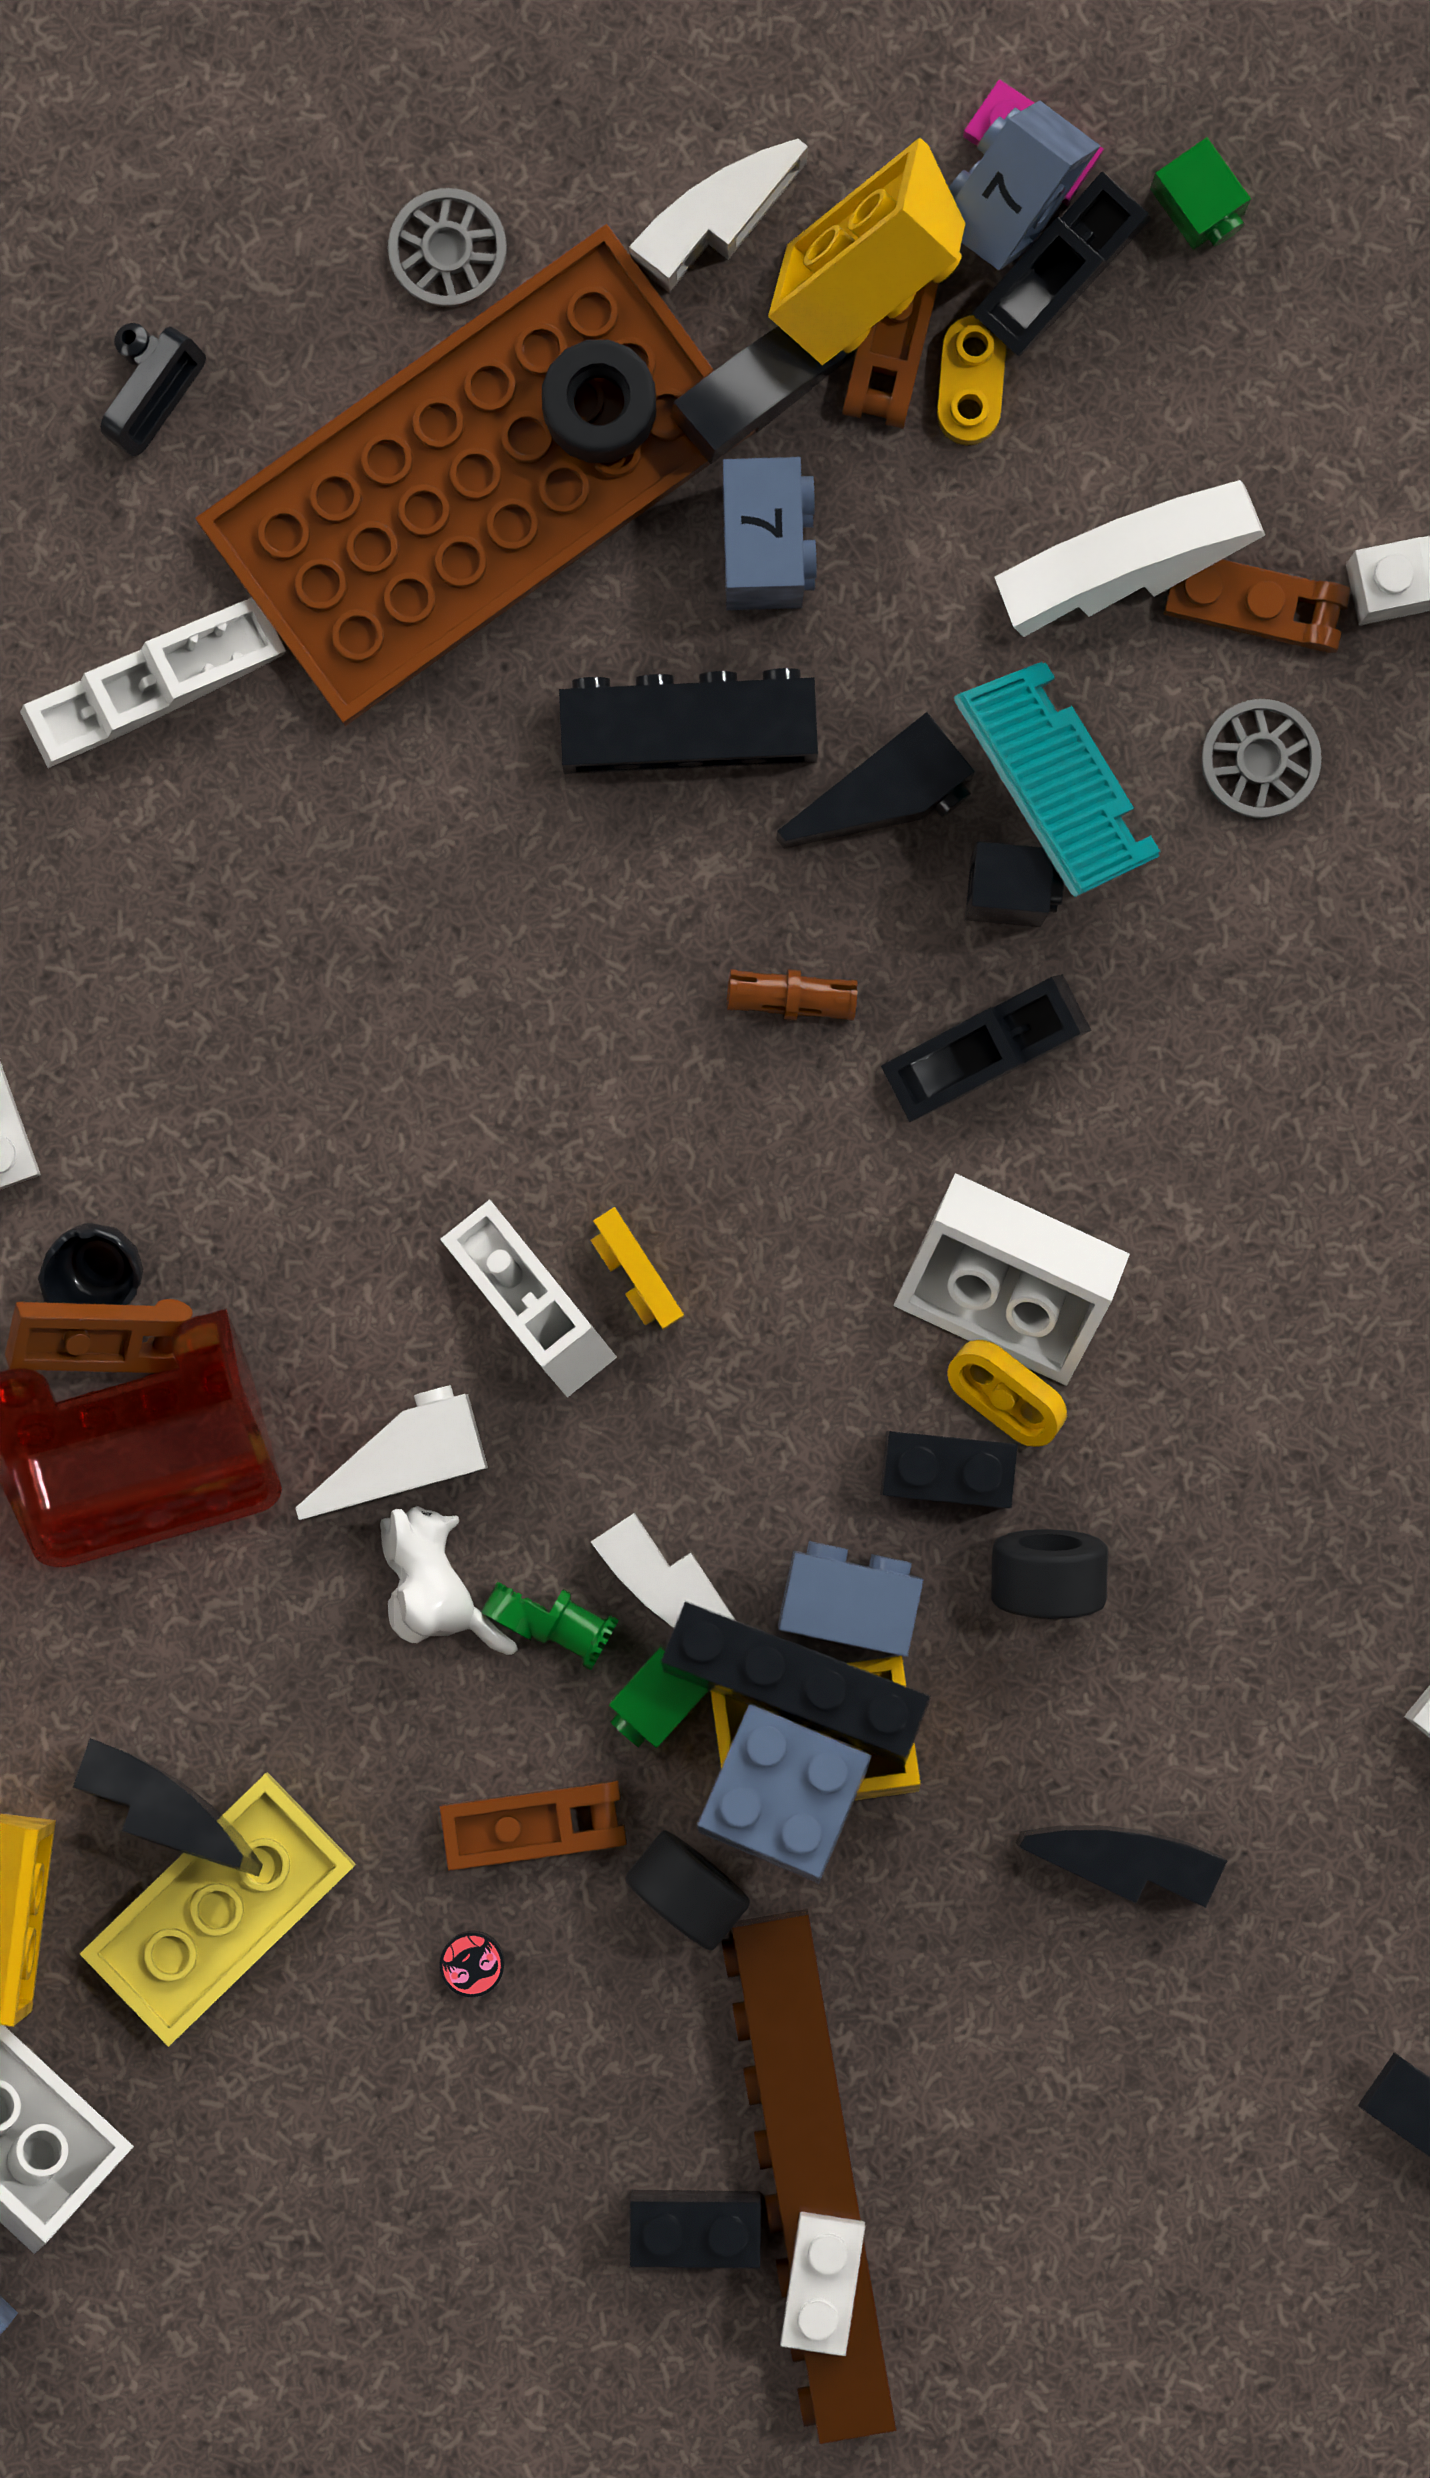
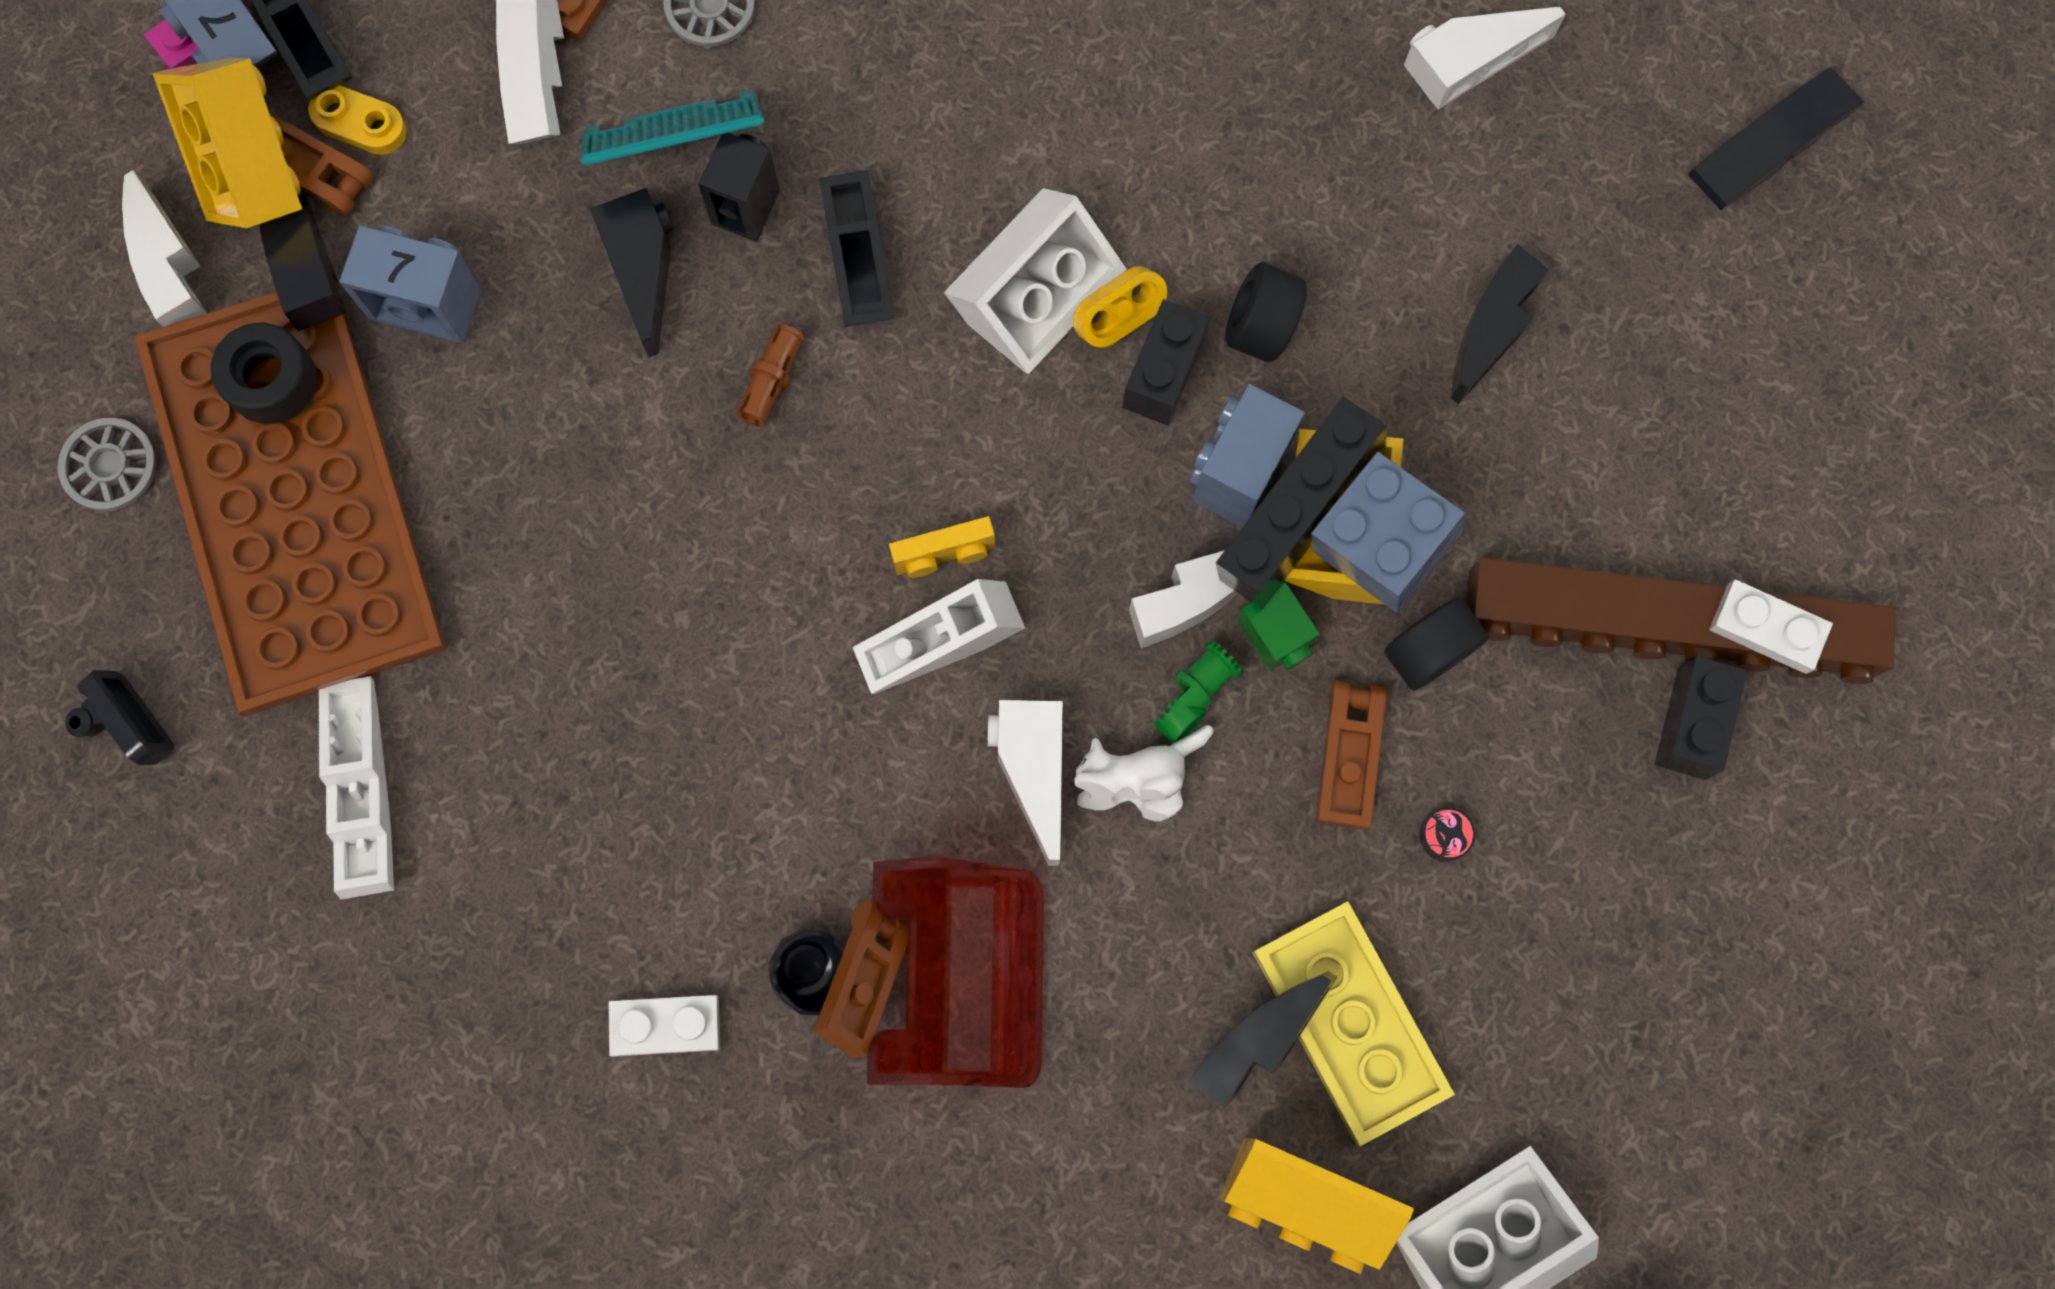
camera: 75 degrees left, 10 degrees down
(688, 723) = (537, 388): black brick -> none

